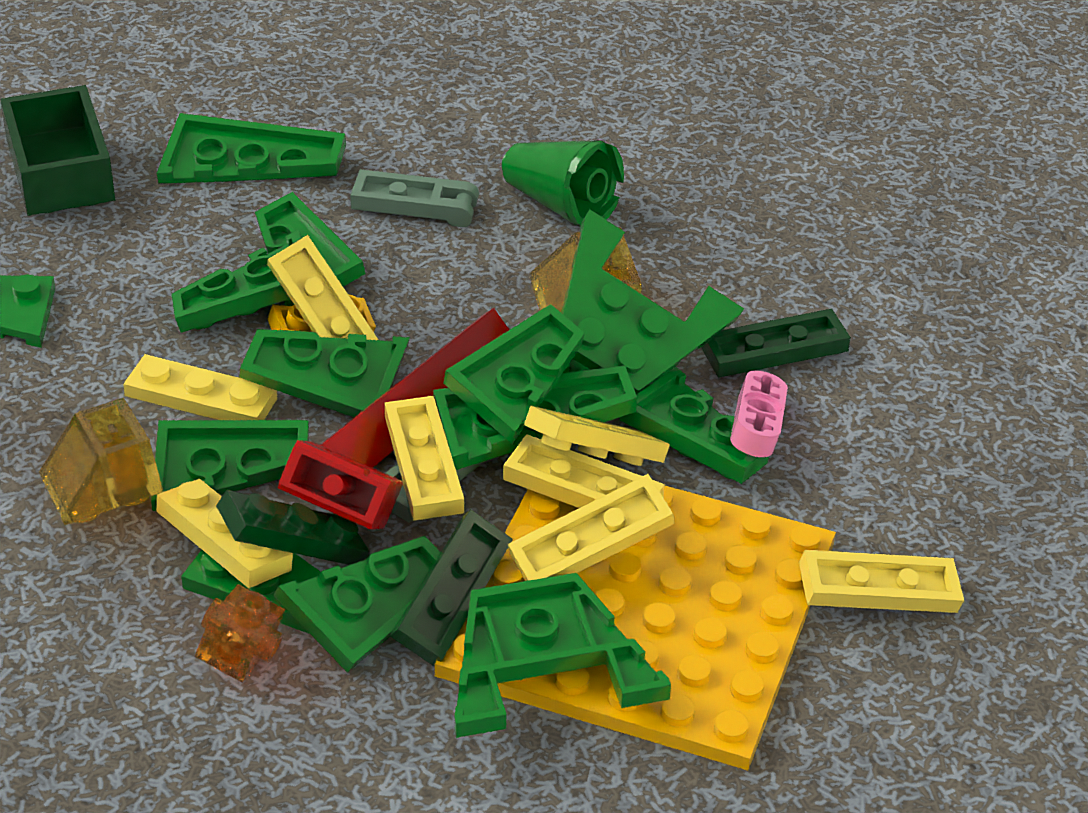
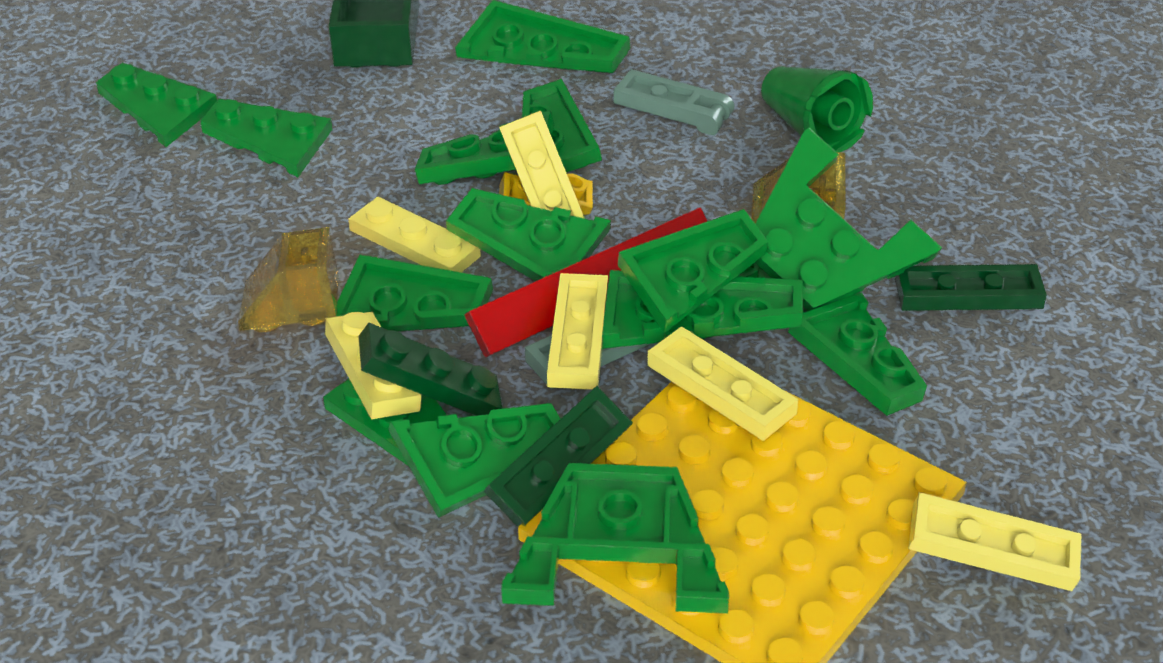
camera: 20 degrees right, 0 degrees up
(240, 632) = (346, 458): clear orange brick -> none
(340, 484) = (488, 340): red brick -> none
(593, 531) = (708, 430): light yellow plate -> none
(595, 437) = (749, 341): light yellow plate -> none
(759, 414) = (925, 351): bright pink beam -> none

